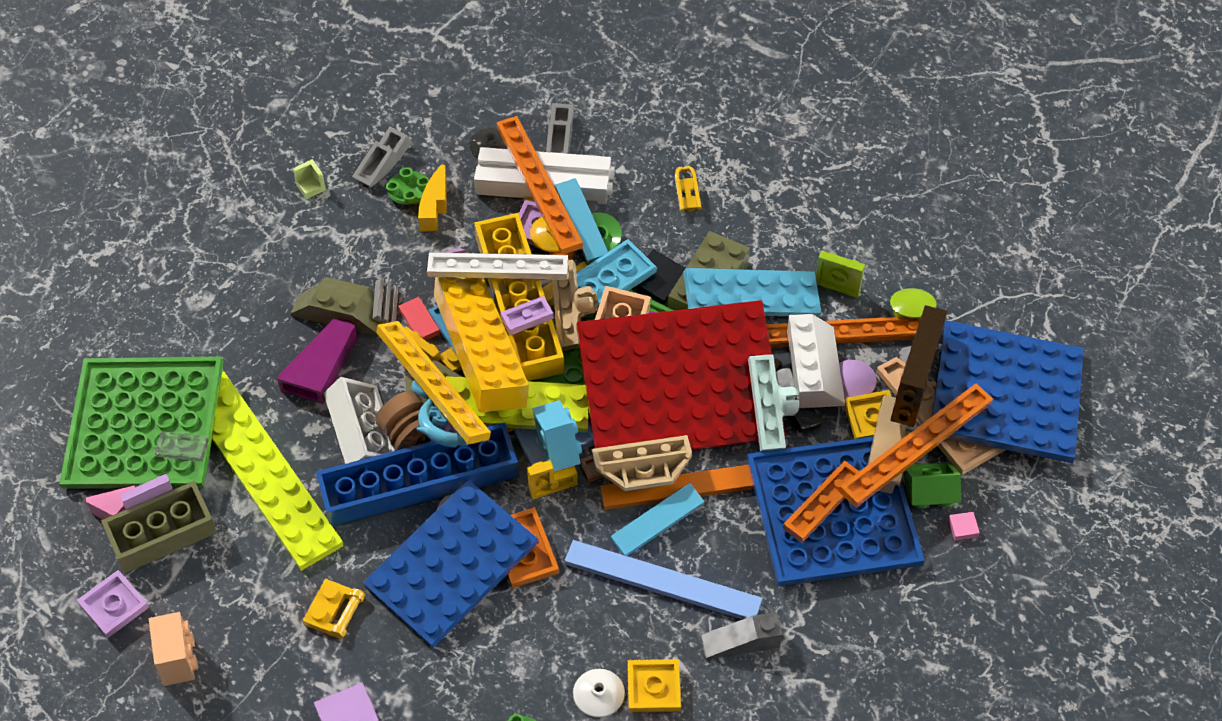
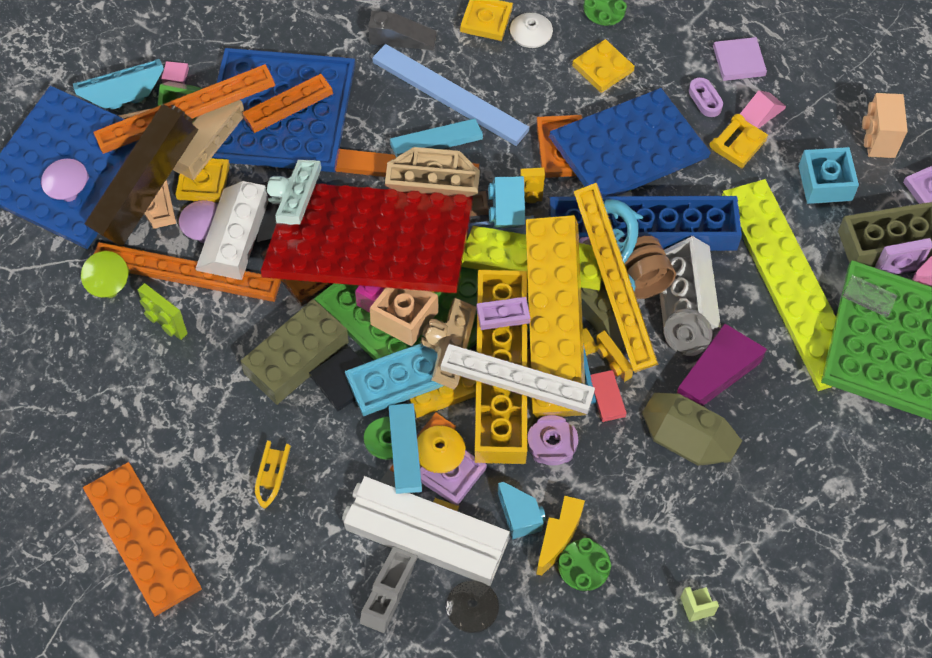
camera: 165 degrees left, 5 degrees up
(231, 577) = (828, 175): none -> medium azure brick
(311, 653) = (762, 109): none -> bright pink slope
(354, 375) = (687, 332): none -> light grey tile
(380, 650) = (706, 99): none -> lavender plate
(382, 157) = (606, 614): light grey slope -> none
(389, 303) = (637, 420): light grey tile -> none
(469, 206) = (520, 511): none -> medium azure slope
(503, 664) = (603, 66): none -> yellow plate
(539, 185) = (440, 496): orange plate -> none
(770, 126) = (142, 539): none -> orange plate
(780, 291) = (261, 311): medium azure plate -> none
(997, 362) = (64, 179): none -> lavender dish
(1012, 486) = (121, 86): none -> medium azure wedge

